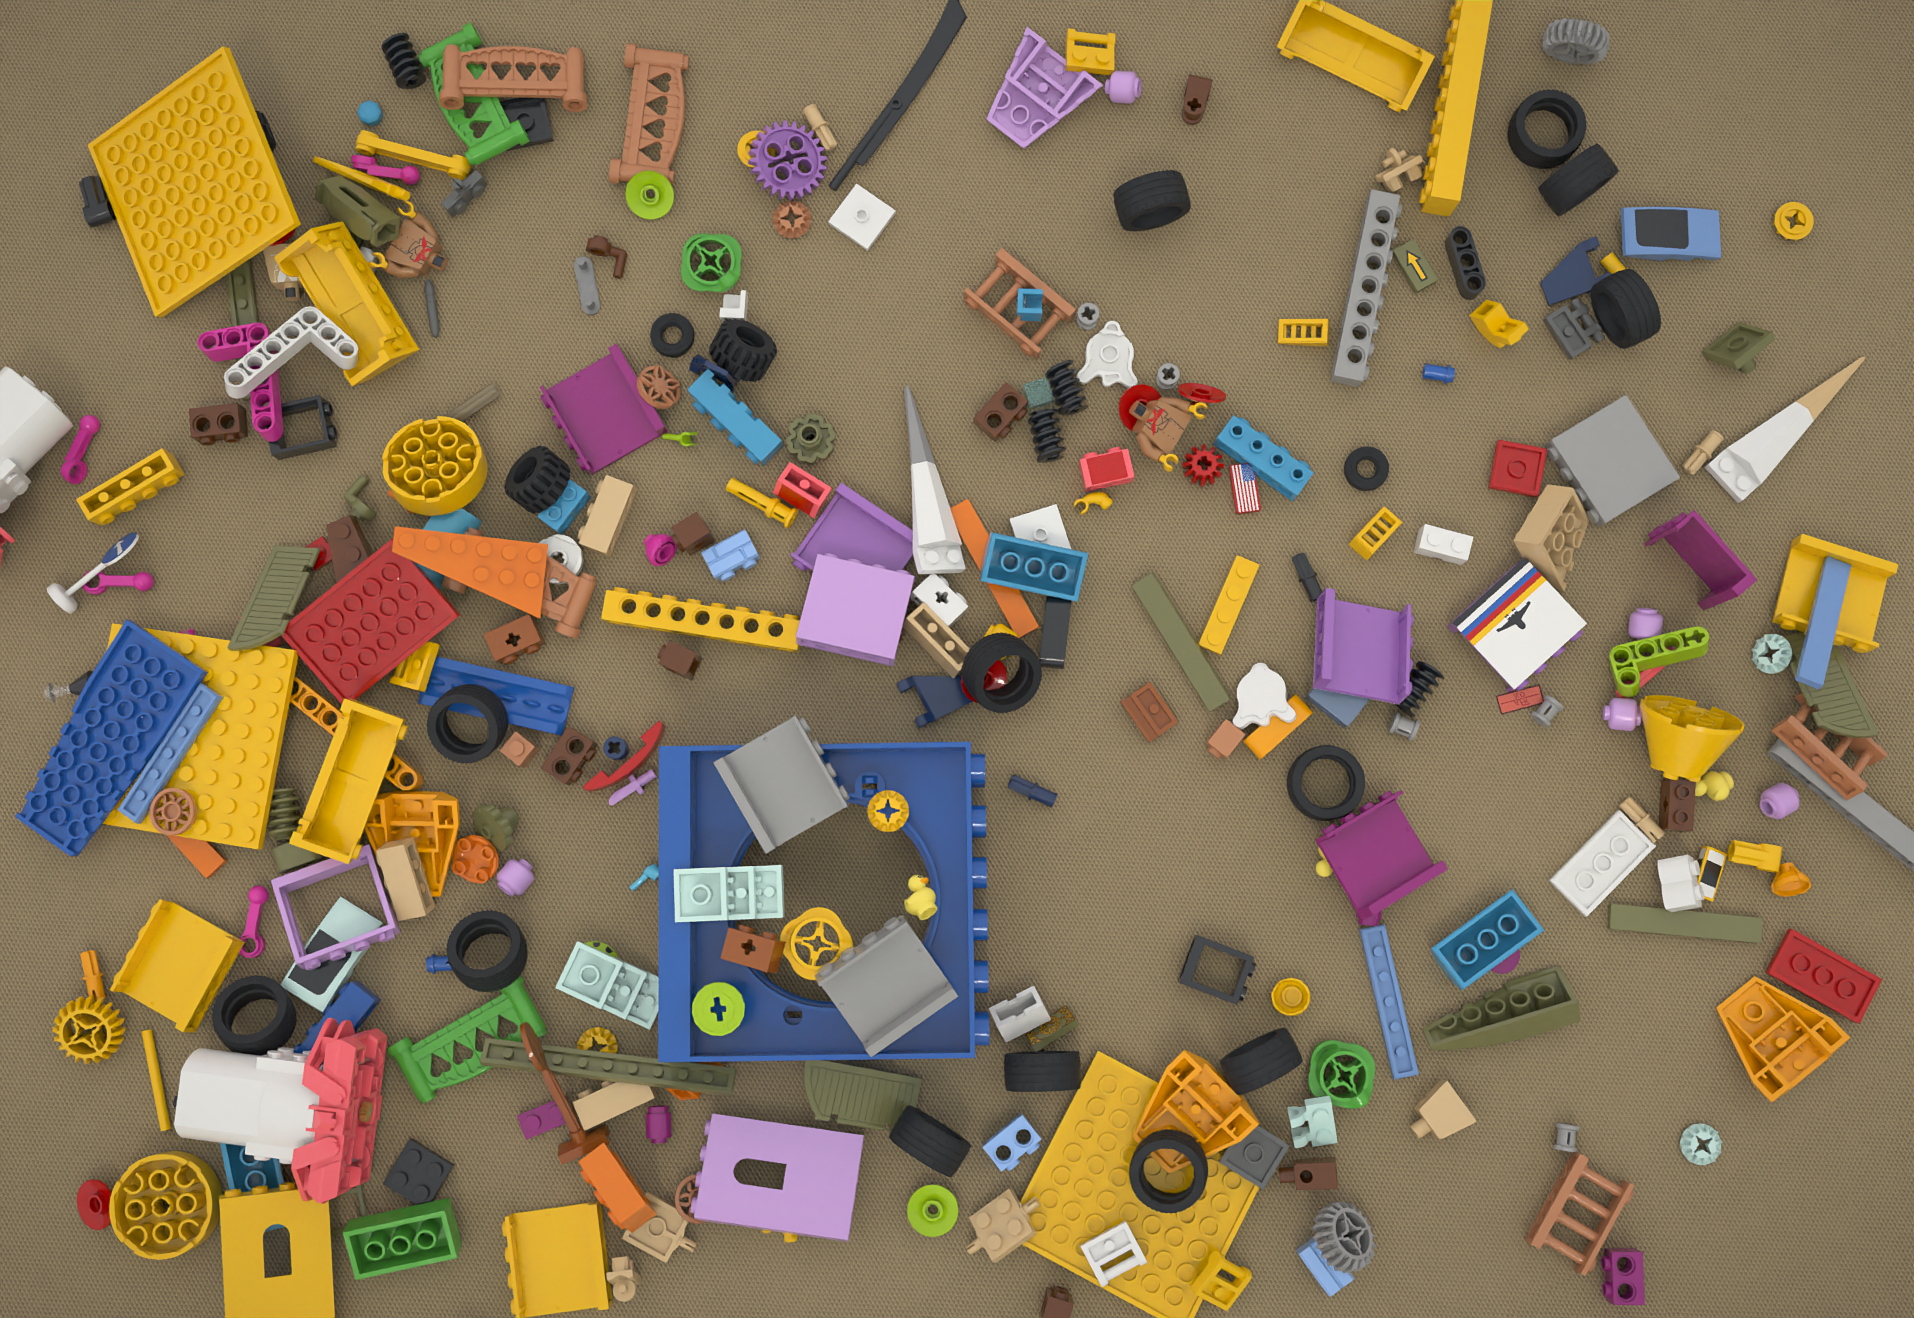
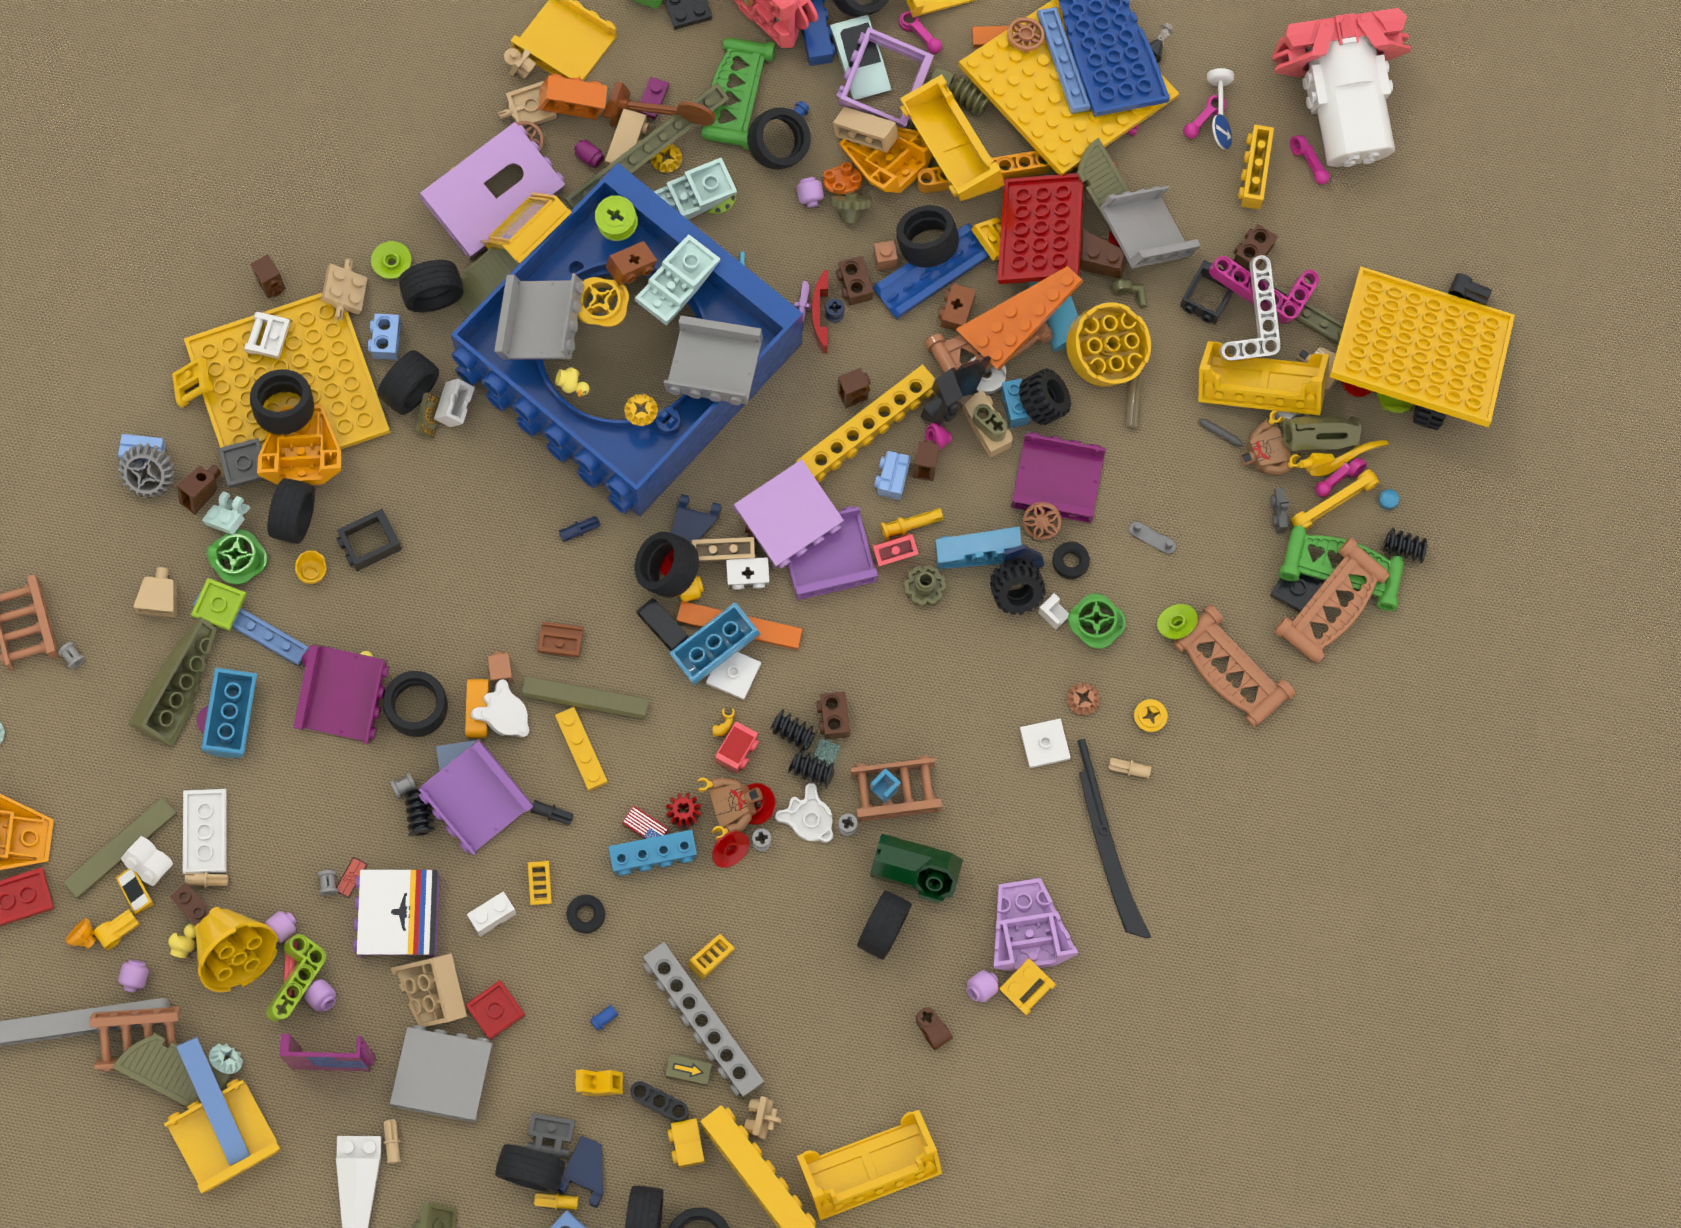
camera: 125 degrees right, 10 degrees down
(285, 530) = (1145, 227): none -> light grey panel
(601, 247) = (1170, 564): reddish brown plate -> none
(602, 507) = (985, 424): none -> olive beam
(607, 557) = (954, 390): none -> black wedge
(684, 437) = (994, 511): lime hand -> none
(779, 139) = (1142, 731): medium lavender gear -> none
(796, 1096) = (528, 225): none -> yellow piece
(934, 529) = (796, 607): white plate -> none
(1074, 223) = (917, 867): none -> dark green brick
(1401, 1046) = (219, 604): none -> lime plate
(1477, 210) = (687, 1143): none -> yellow brick

